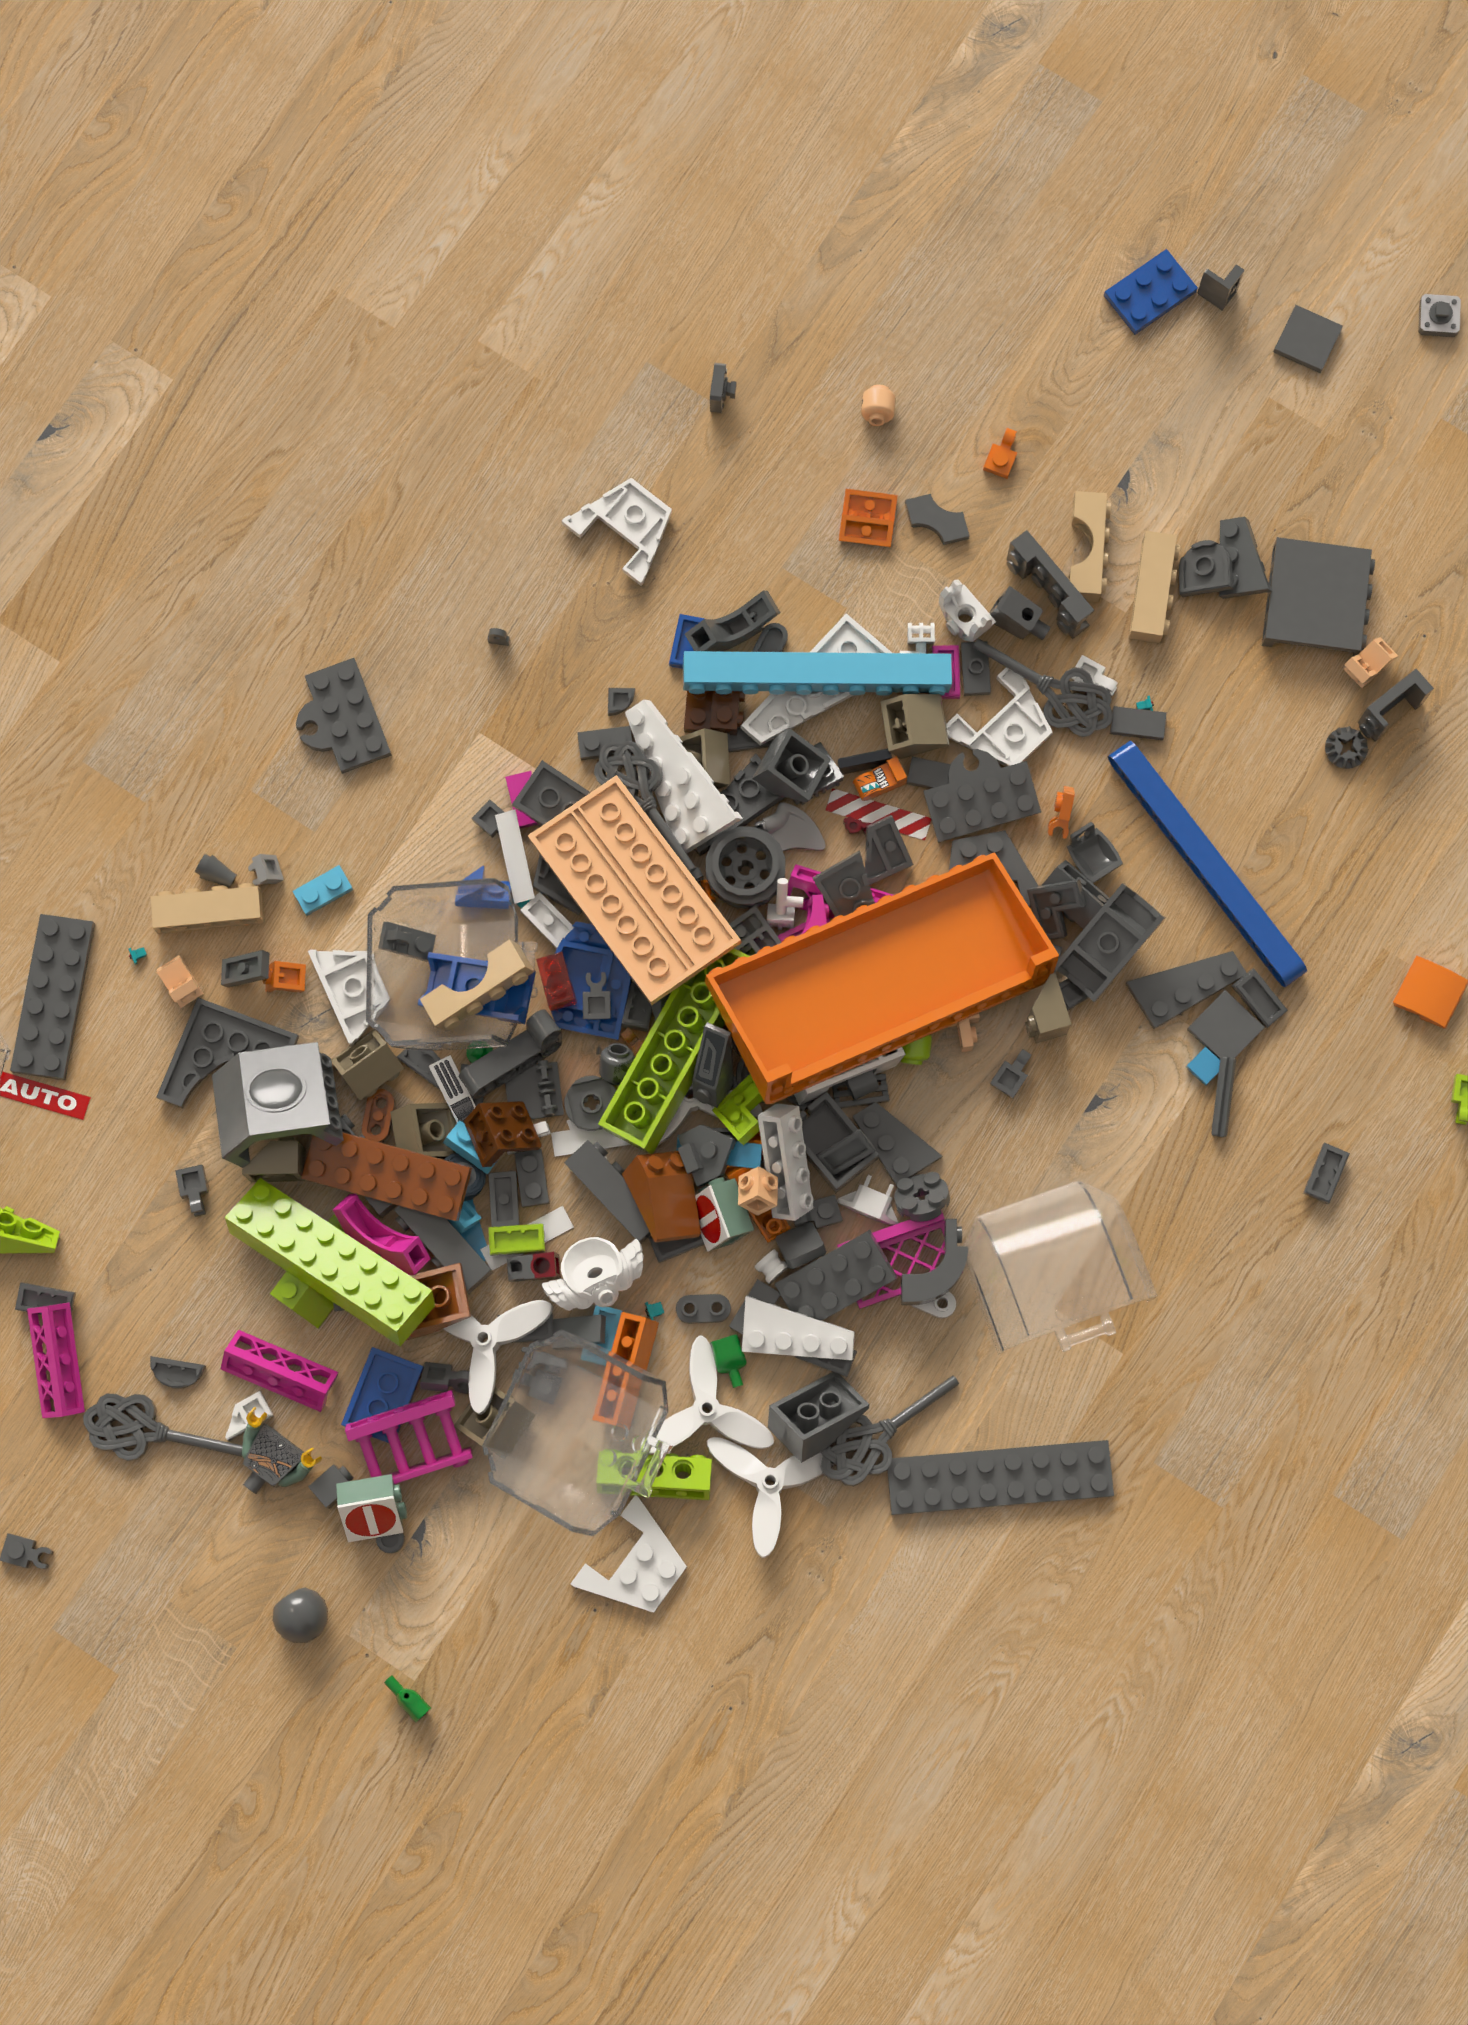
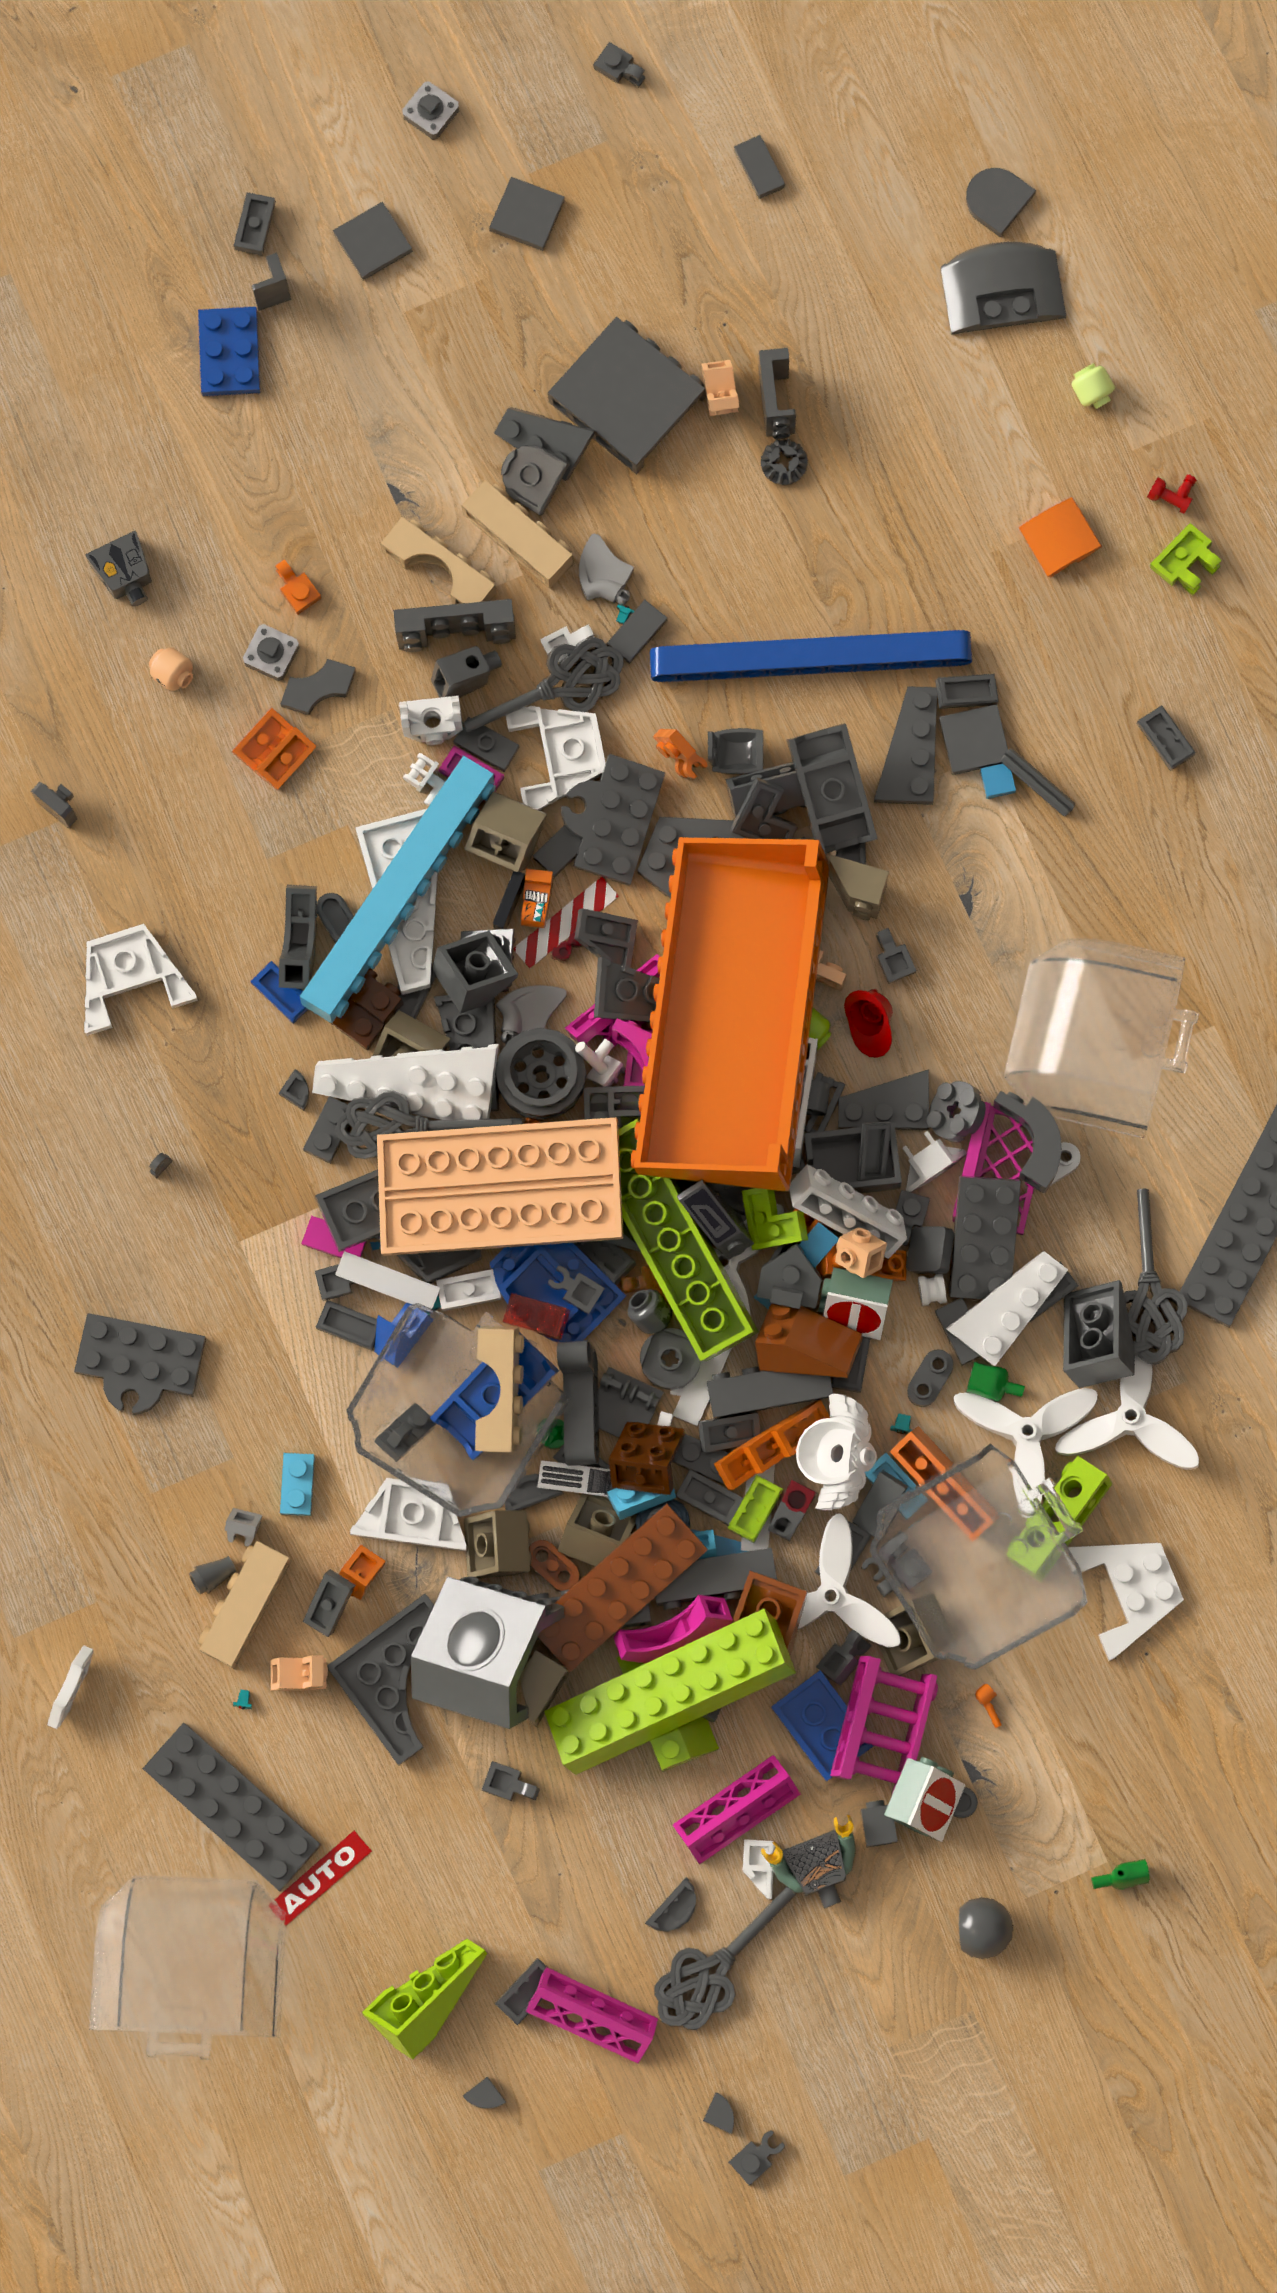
camera: 55 degrees left, 0 degrees up
(41, 1504) = (720, 2114): none -> dark grey tile
(58, 824) = (67, 1694): none -> white tile
(466, 849) = (348, 1325): none -> dark grey tile
(484, 1505) = (984, 1696): none -> orange hand
(562, 1182) = (728, 1431): none -> dark grey hinge
(570, 1219) = (768, 1446): none -> orange slope
(932, 321) = (122, 568): none -> dark grey torso
(940, 469) = (271, 652): none -> piece
(950, 1086) = (869, 1021): none -> red piece
(1166, 669) = (603, 573): none -> light grey arm
(1260, 246) = (254, 224): none -> dark grey plate
(1408, 436) = (527, 213): none -> dark grey tile

